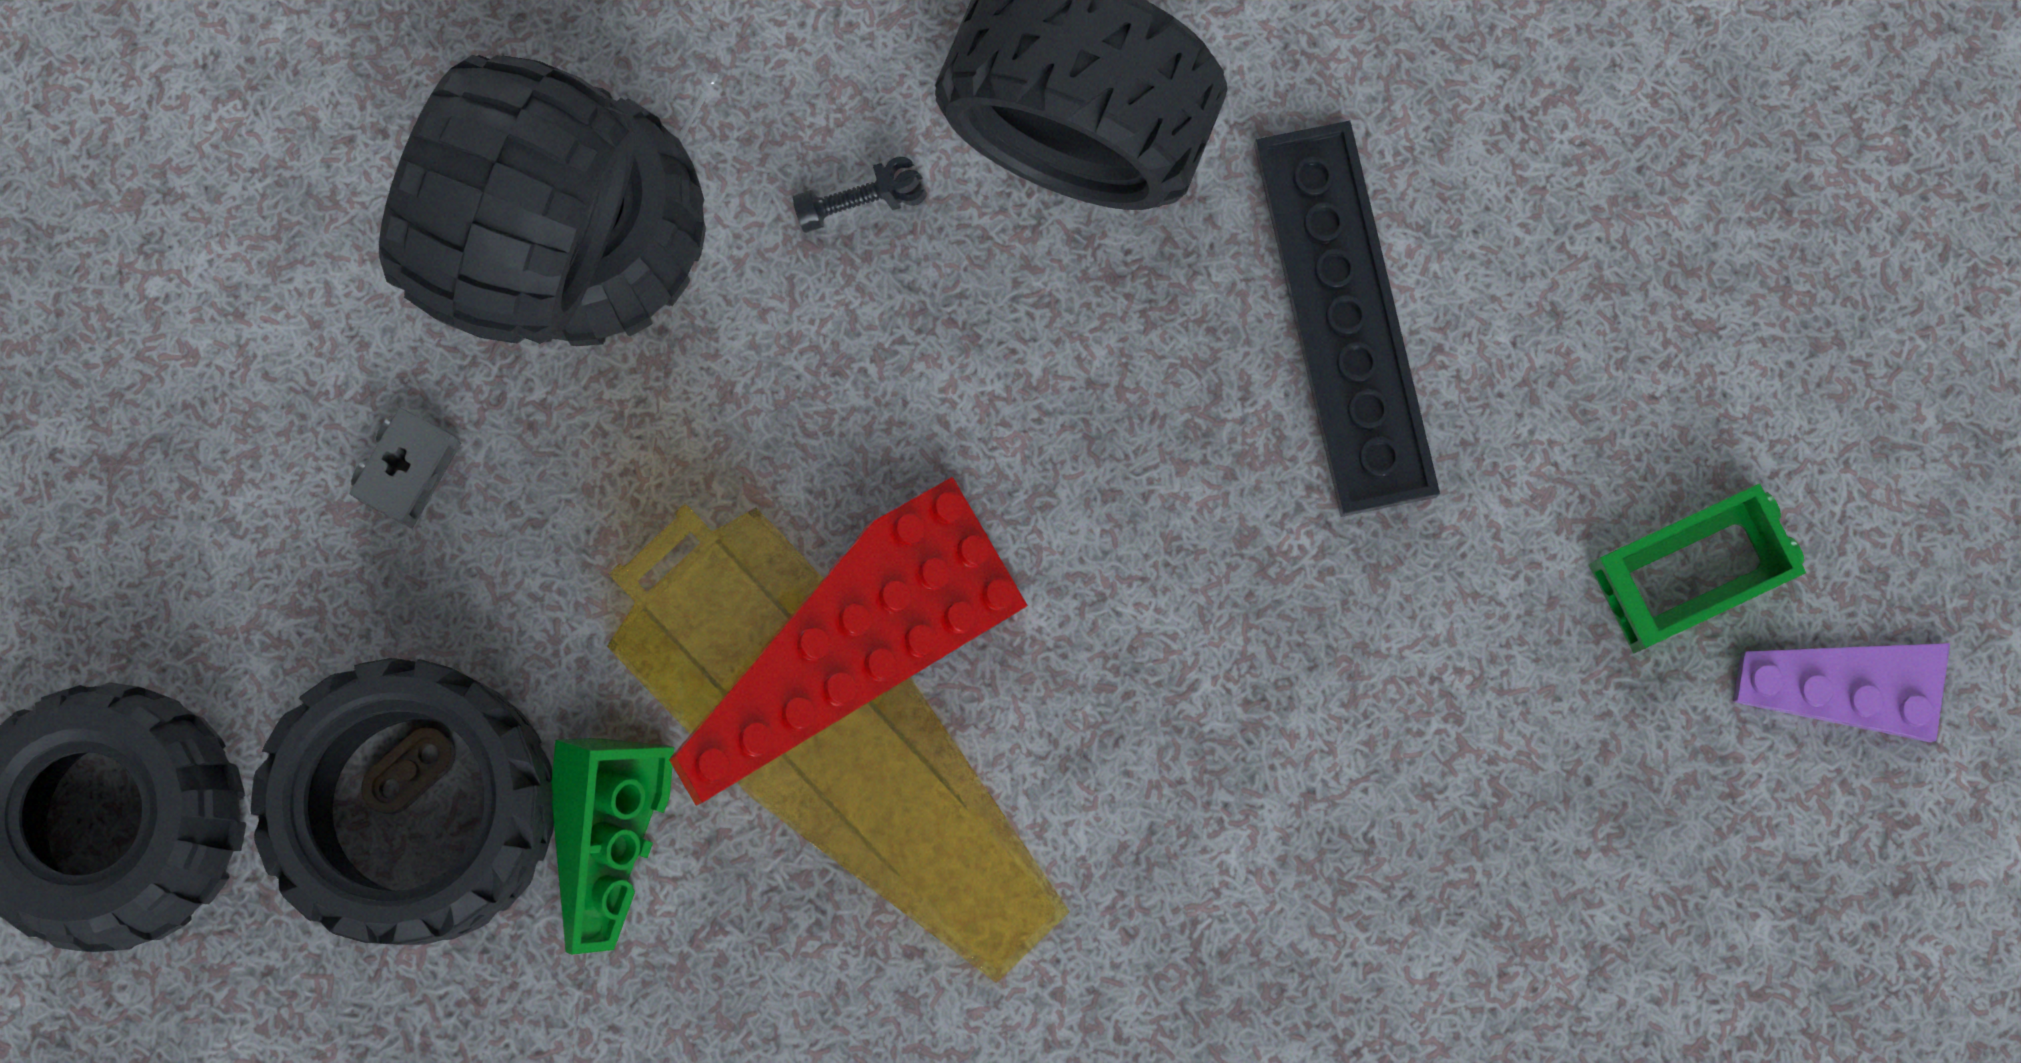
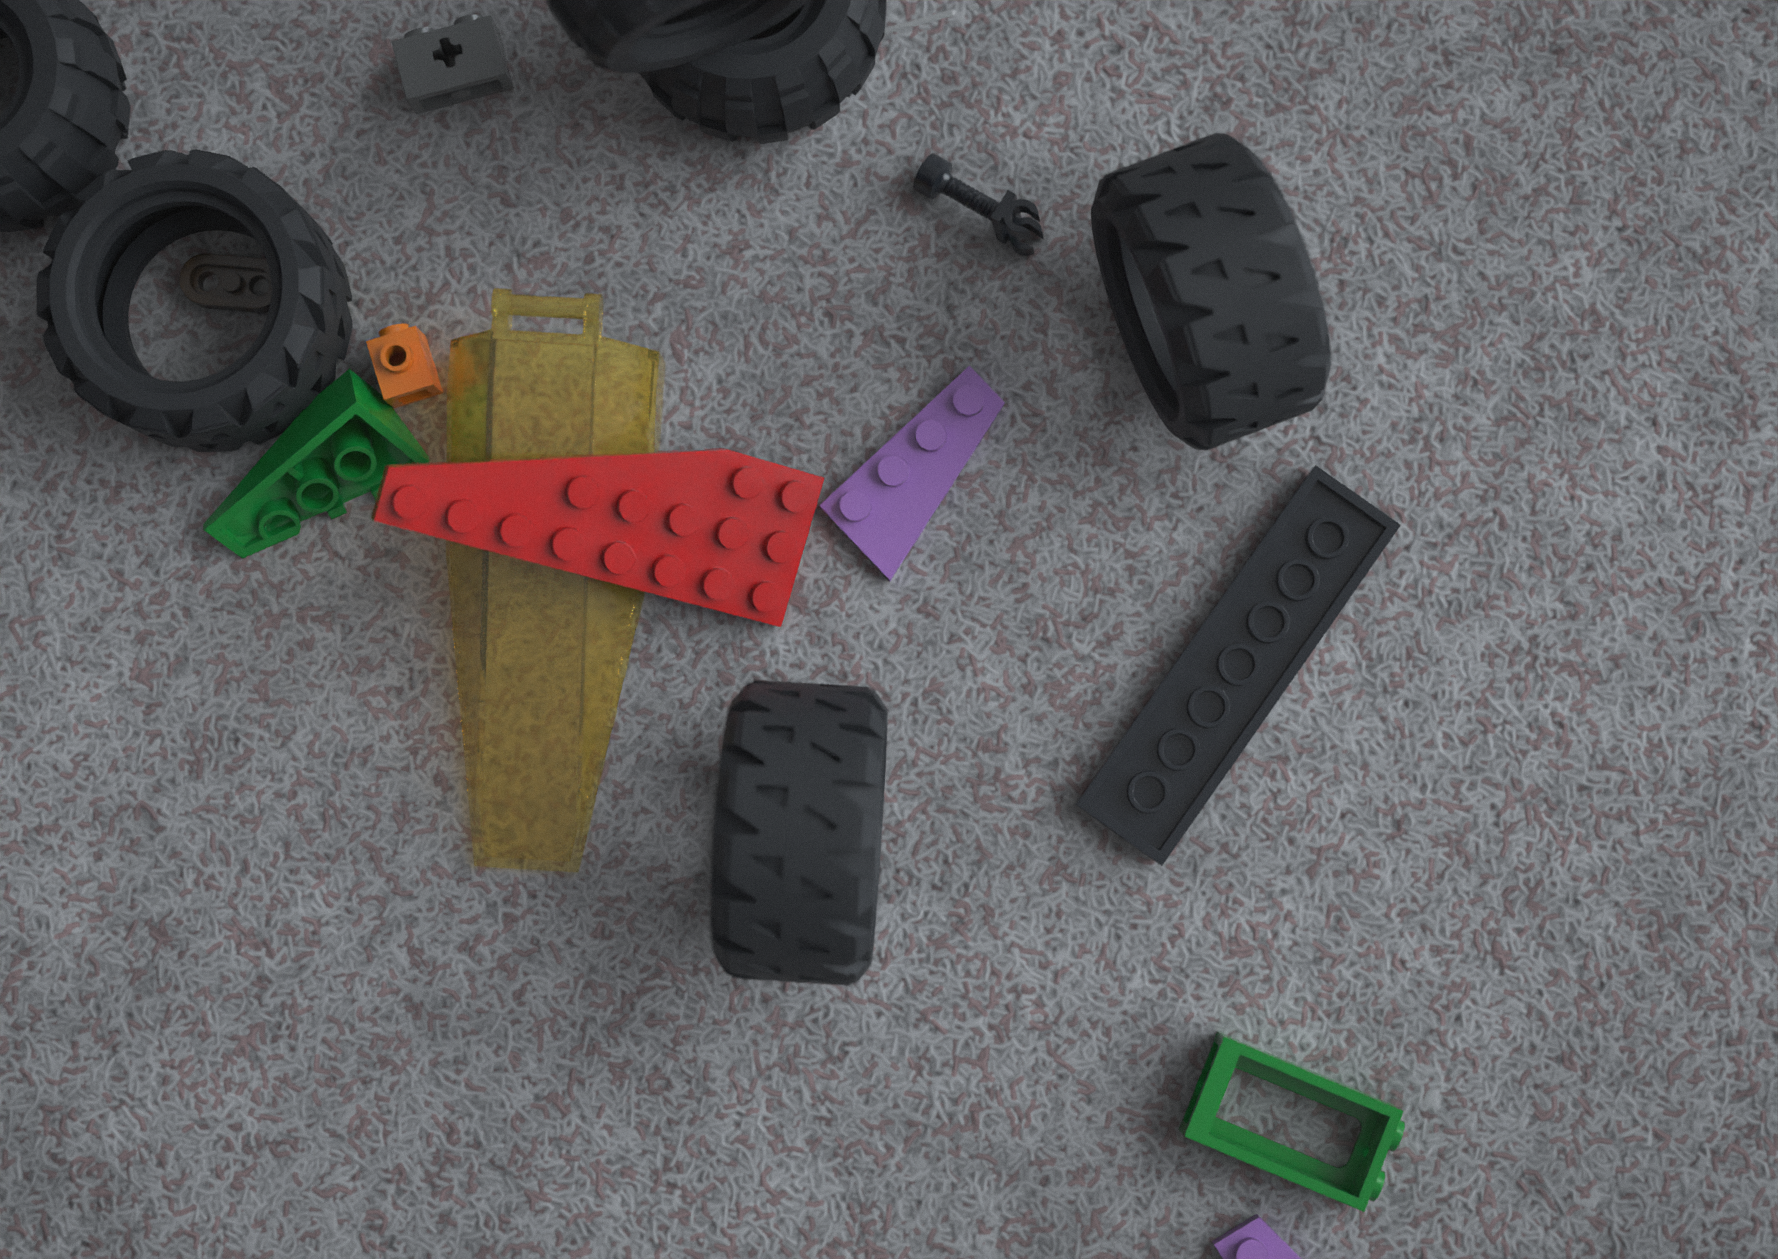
camera: 55 degrees right, 5 degrees up
(588, 700) = (403, 365): none -> orange brick
(1005, 427) = (907, 479): none -> medium lavender wing
(1202, 706) = (798, 832): none -> black tyre

